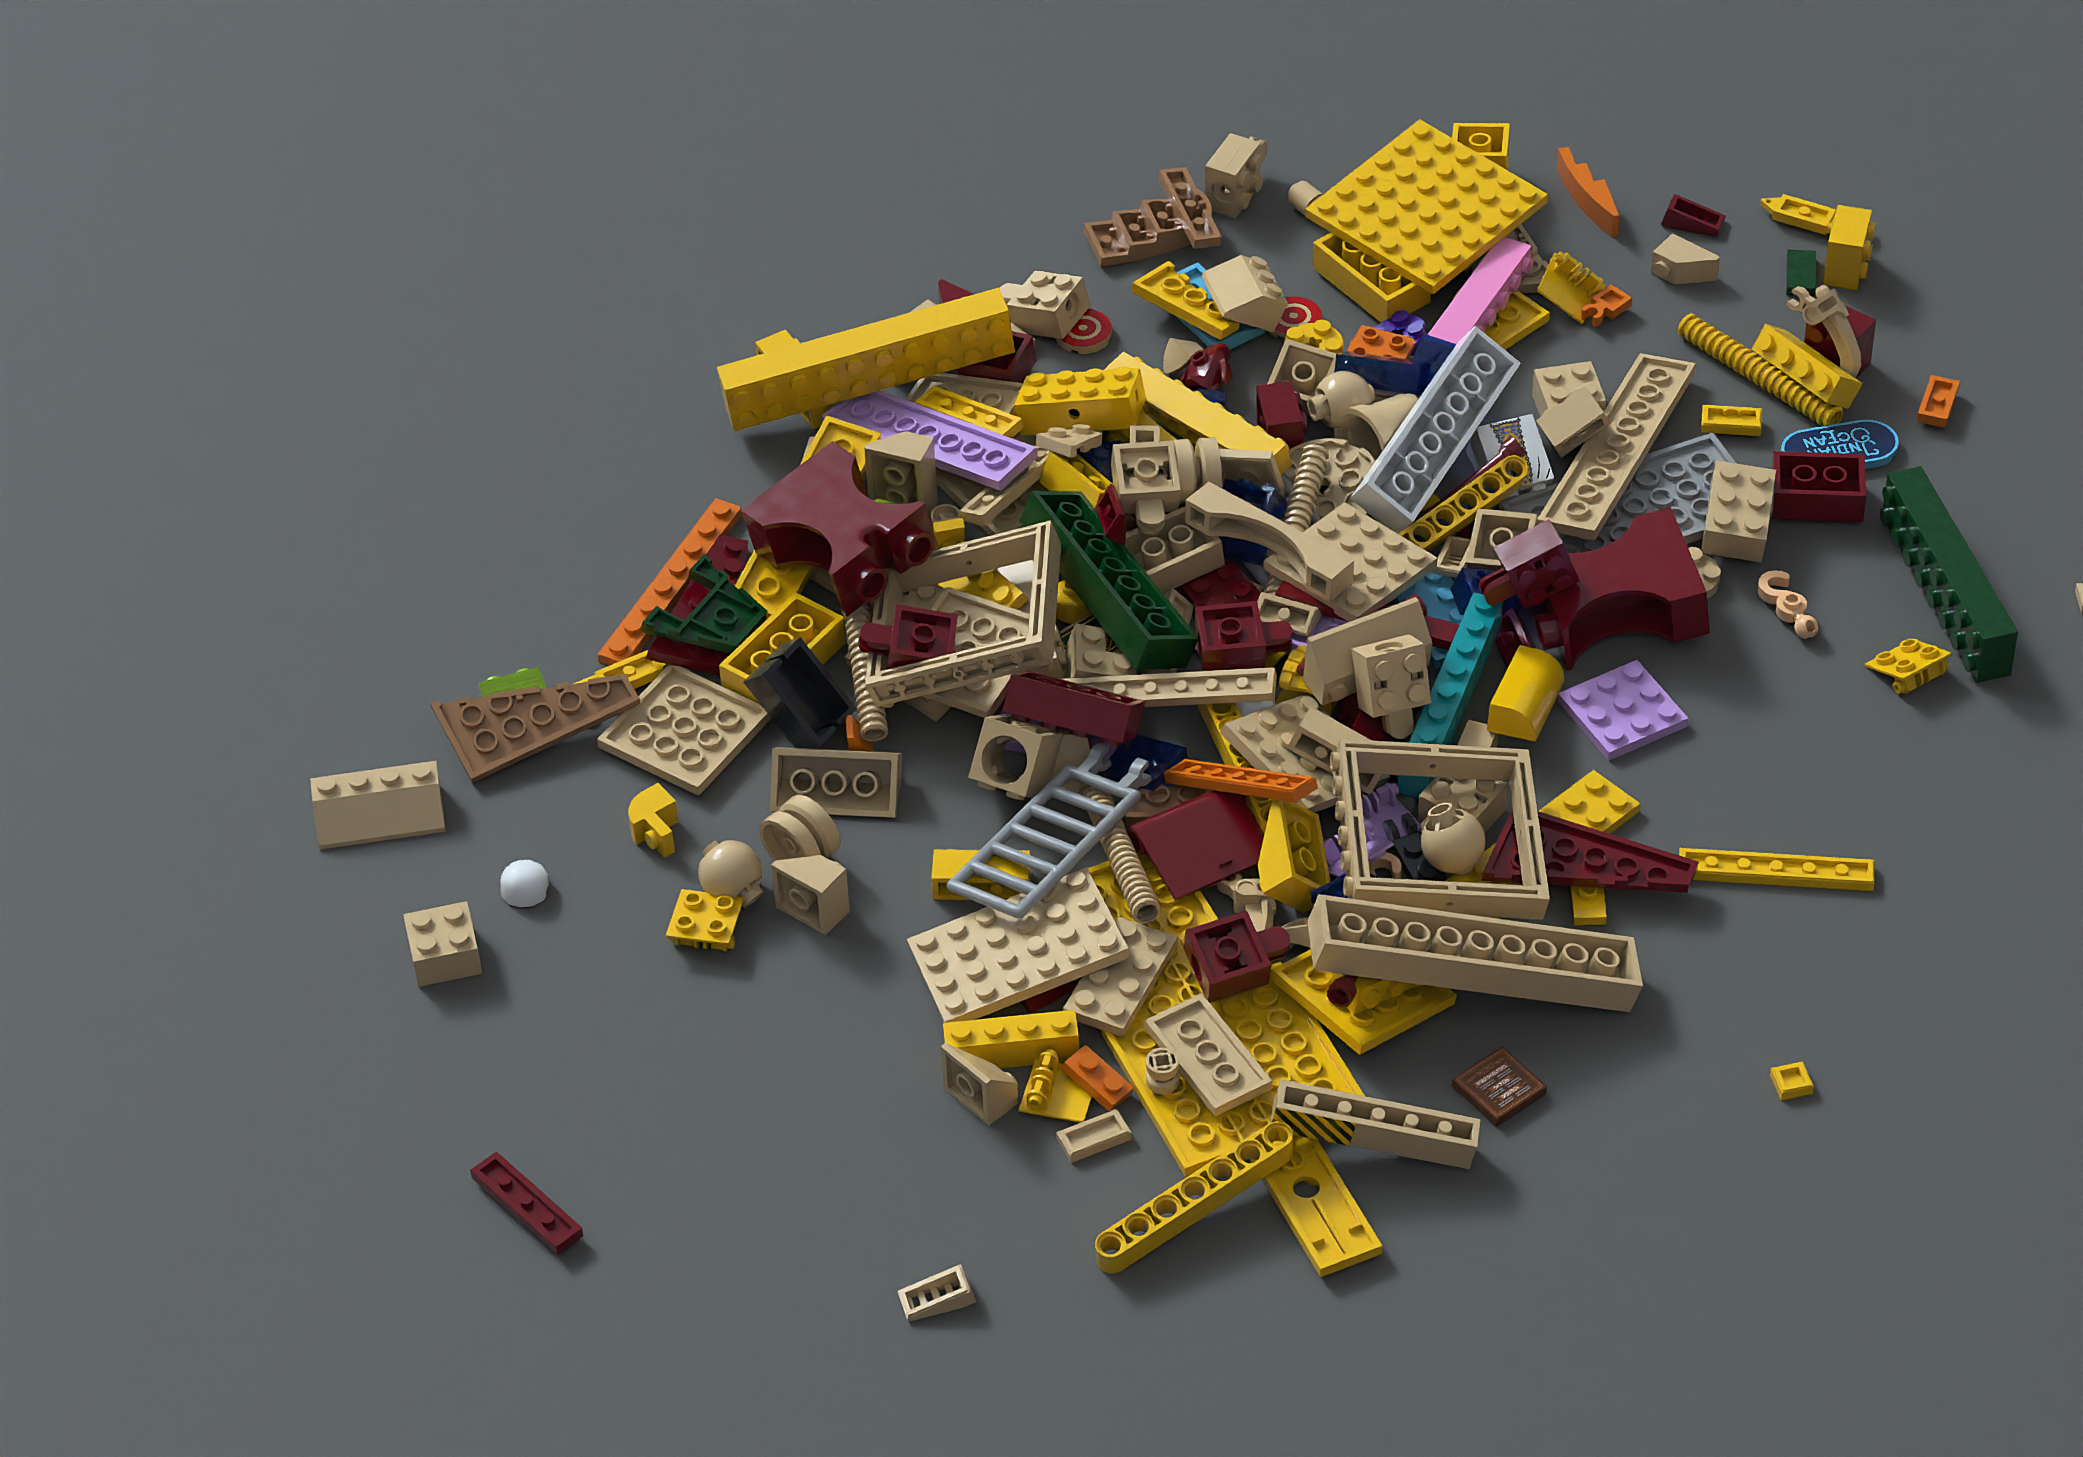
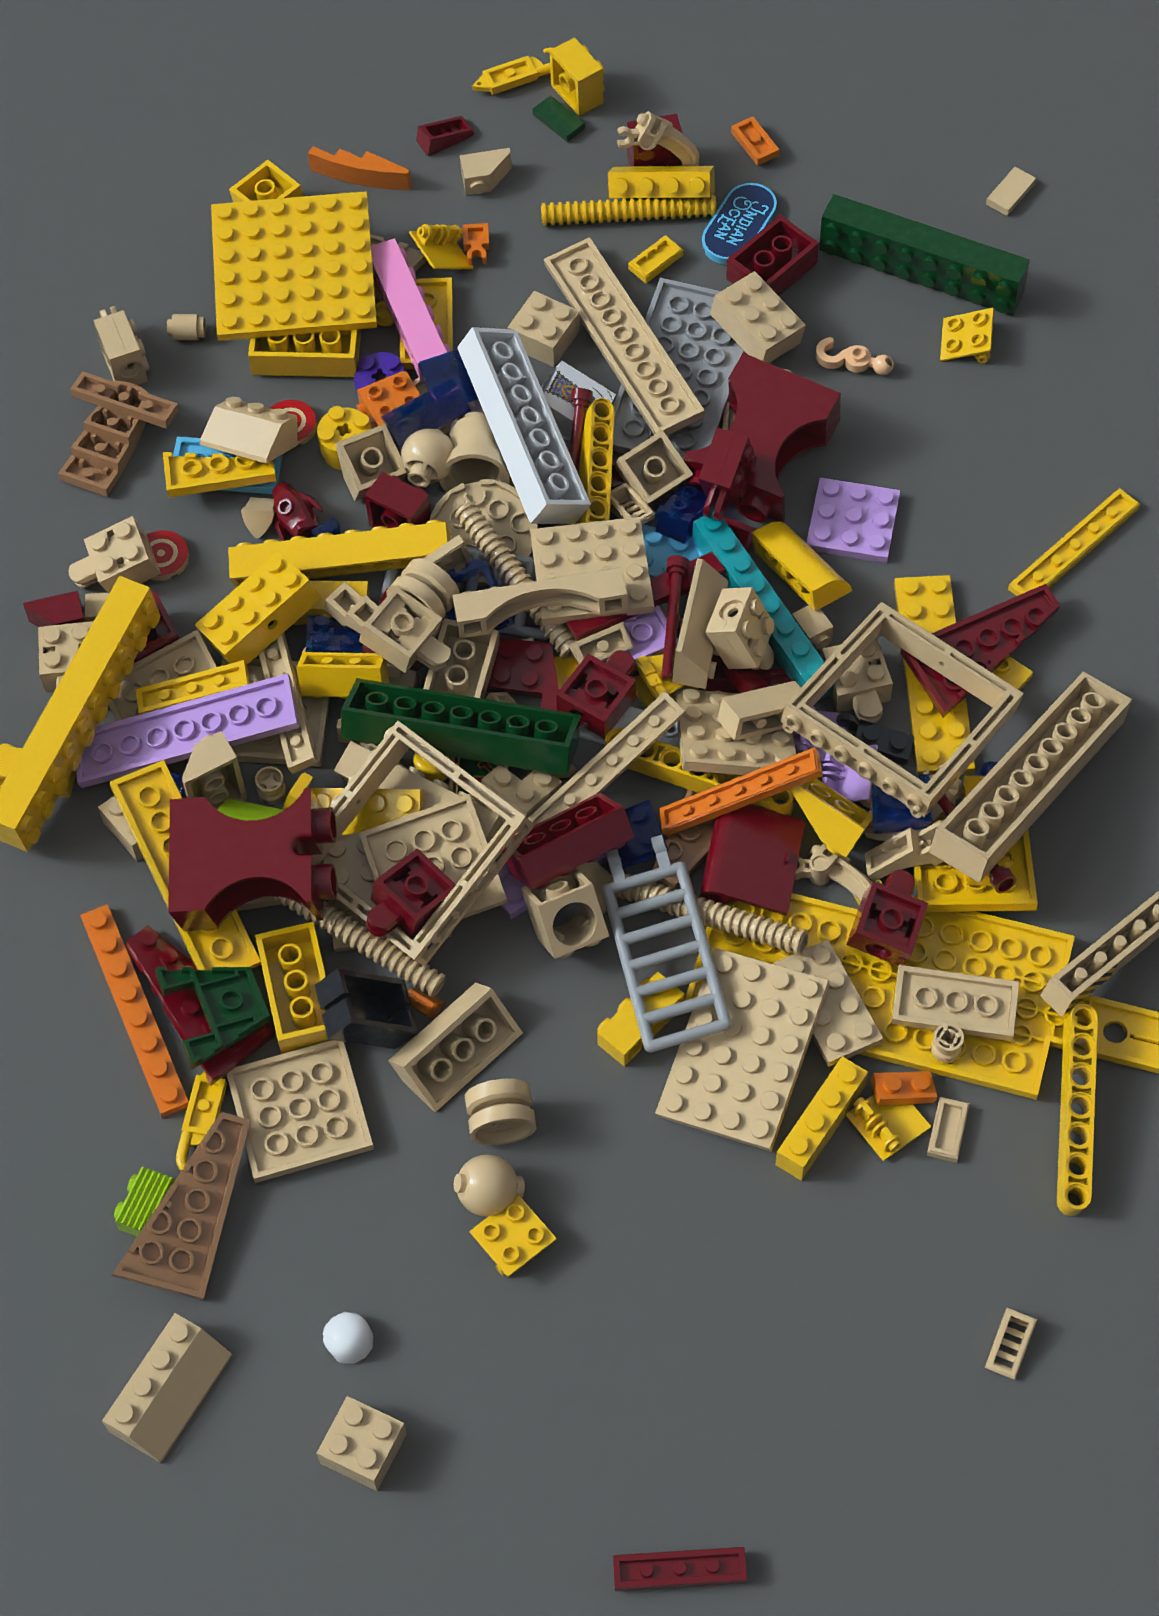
camera: 50 degrees left, 15 degrees up
(650, 818) = (369, 1202): yellow brick -> none
(811, 890) = (562, 1143): tan slope -> none
(978, 1084) = (847, 1170): tan slope -> none
(1068, 441) = (298, 647): tan wing -> none
(1112, 515) = (410, 676): dark red slope -> none
(1452, 839) = (906, 707): tan brick -> none
(1499, 1086) = (1122, 847): reddish brown tile -> none
(1572, 421) = (588, 344): tan slope -> none

